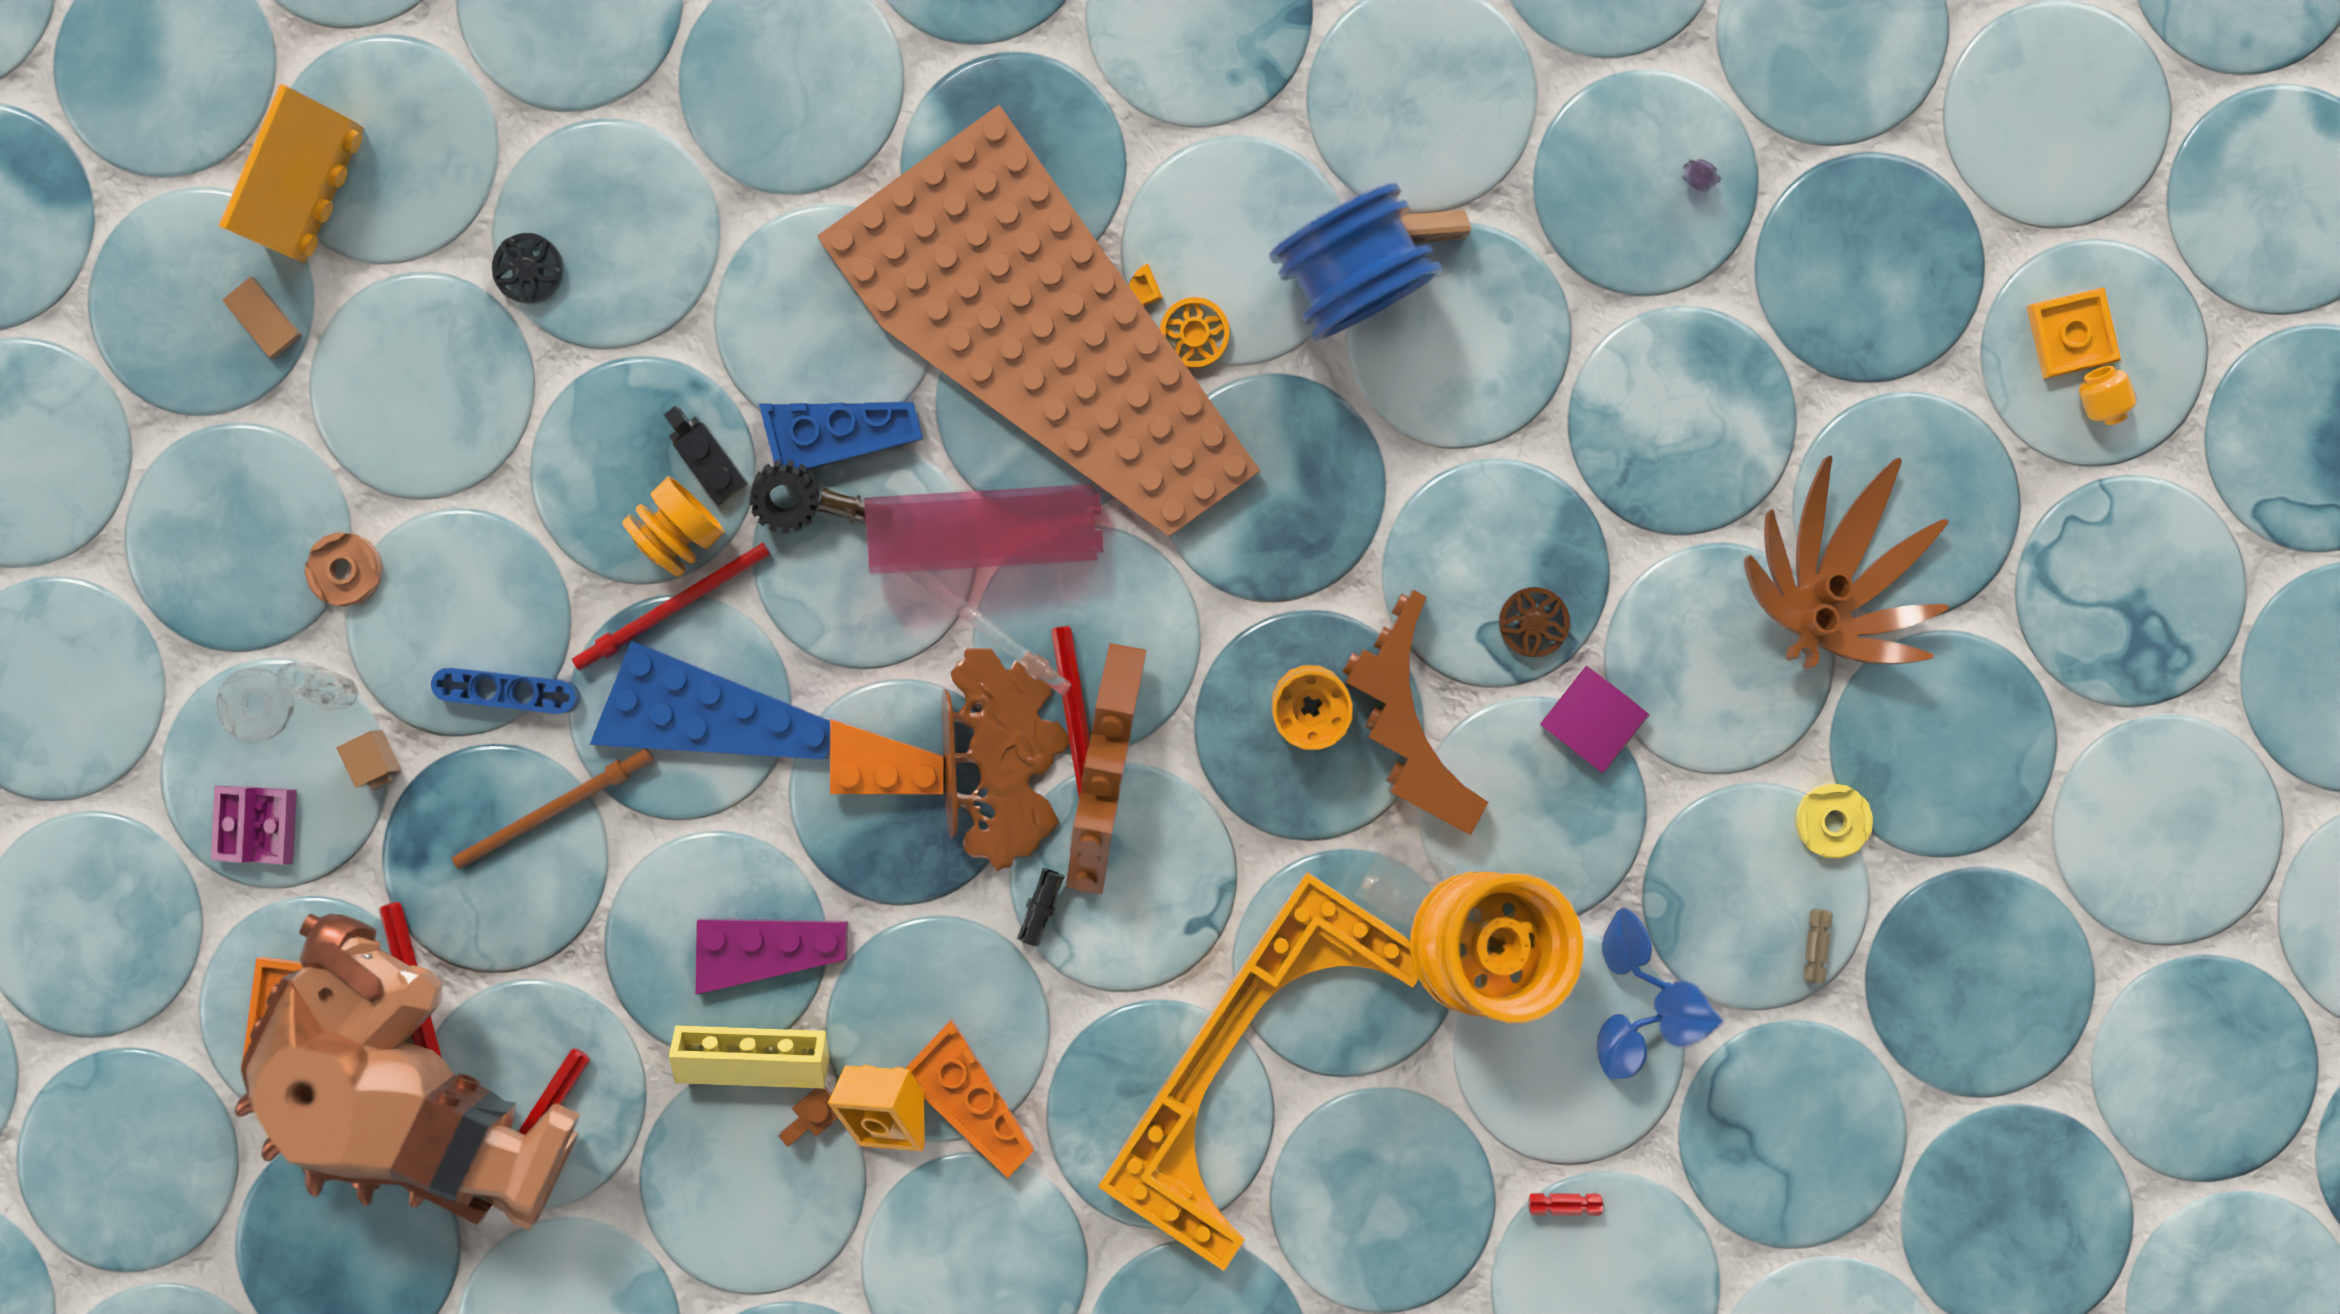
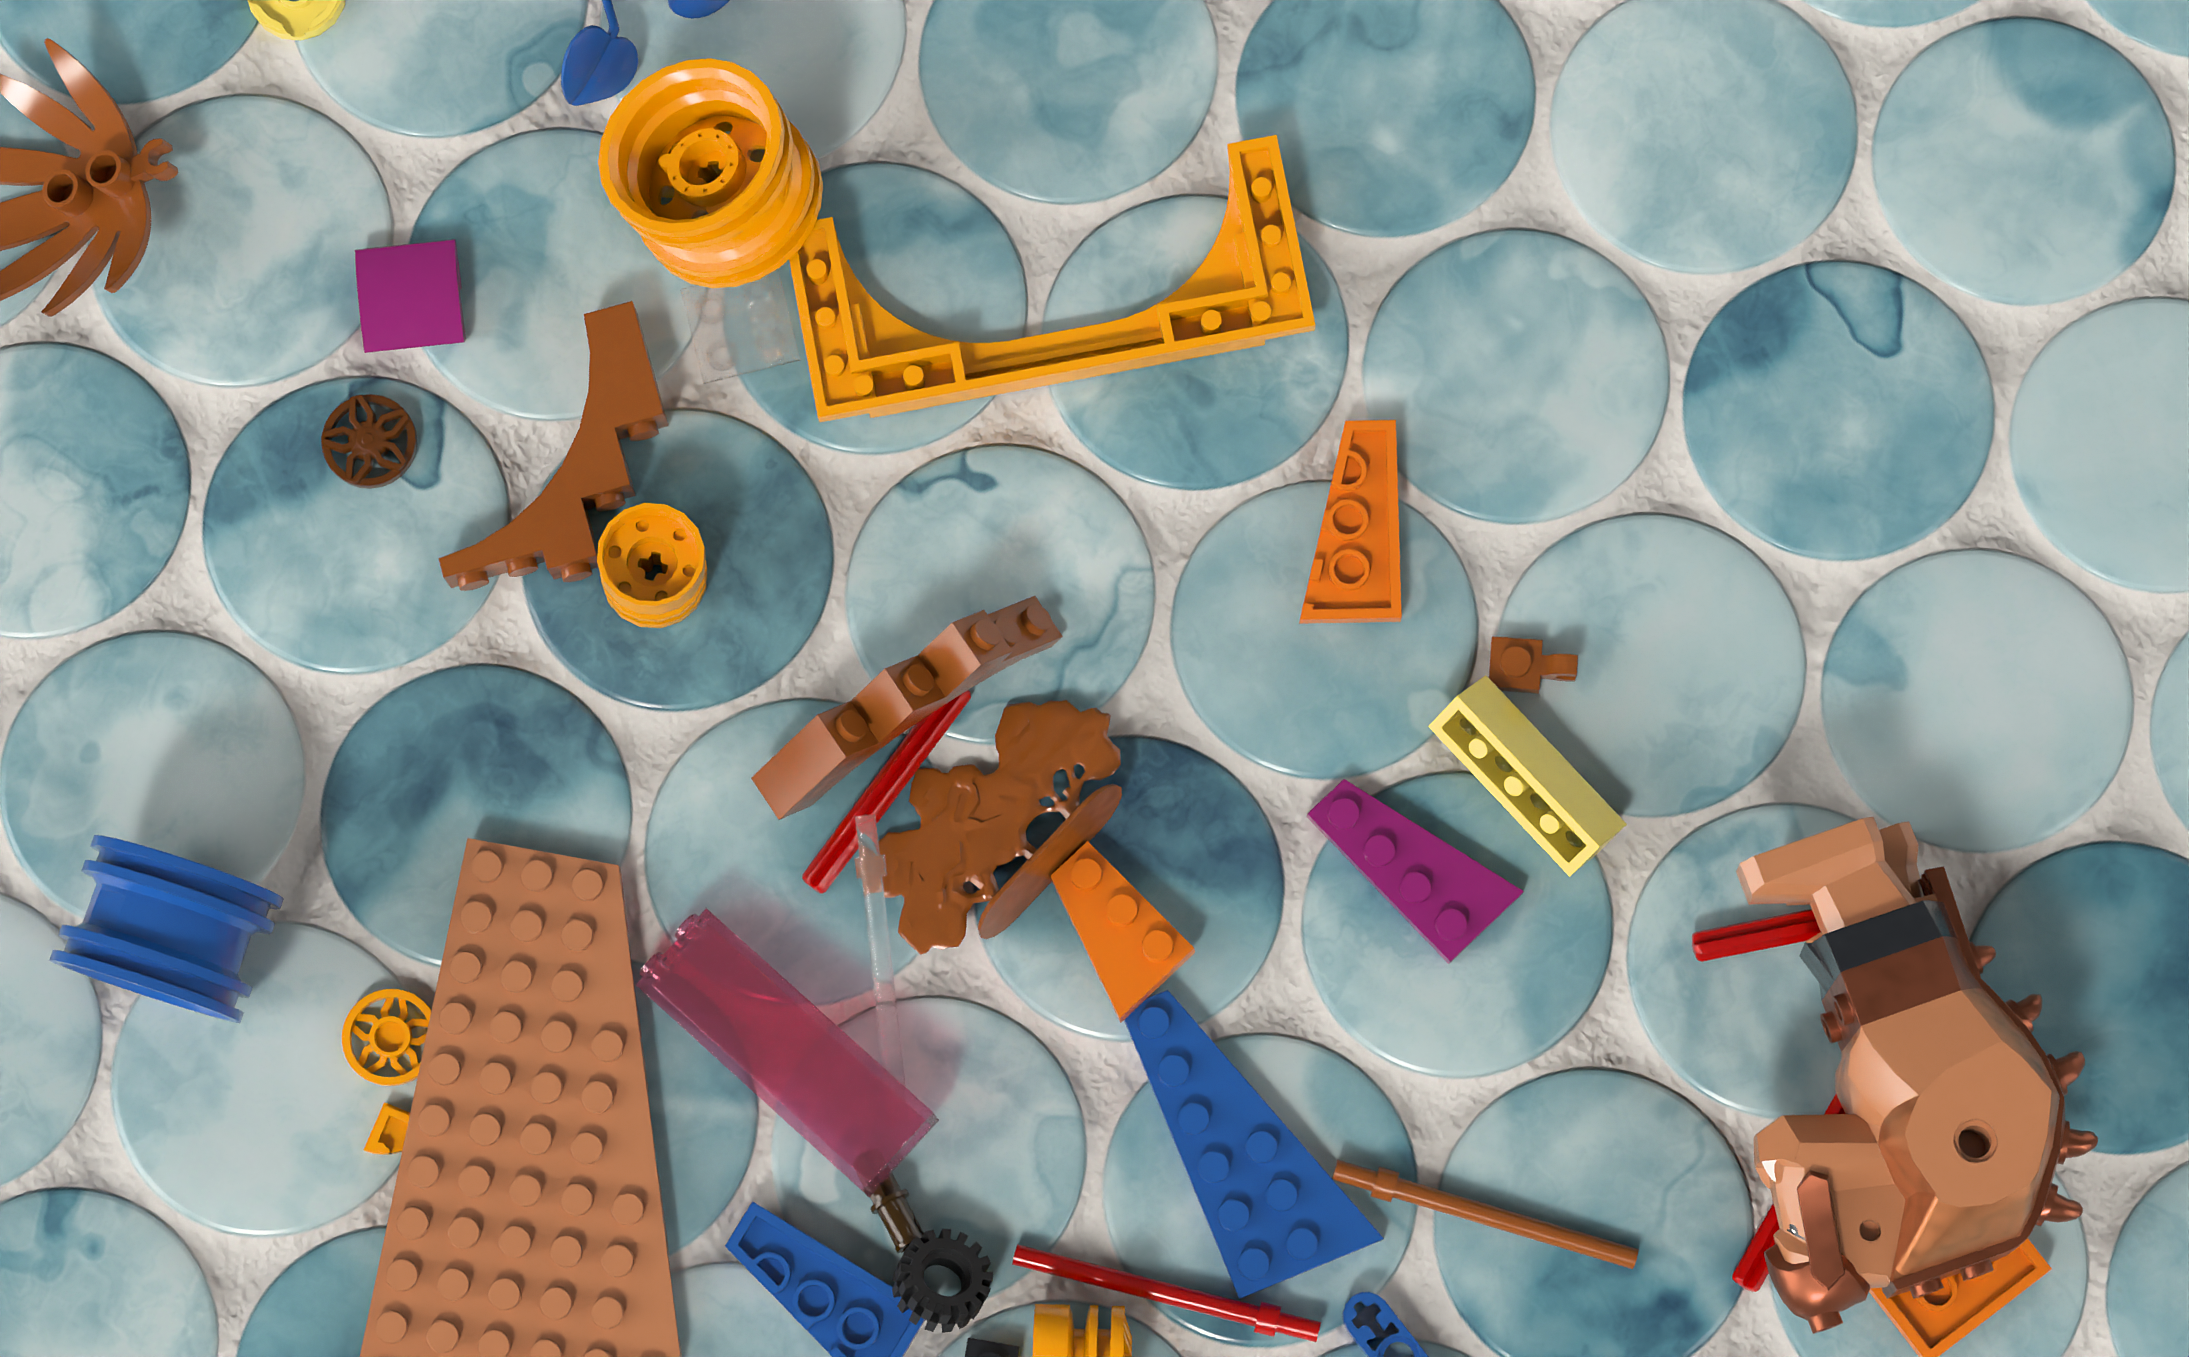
camera: 130 degrees left, 10 degrees down
(880, 1107) = (1447, 601): light orange slope -> none
(1040, 907) = (1104, 641): black pin -> none
(1437, 226) = (53, 894): medium nougat slope -> none

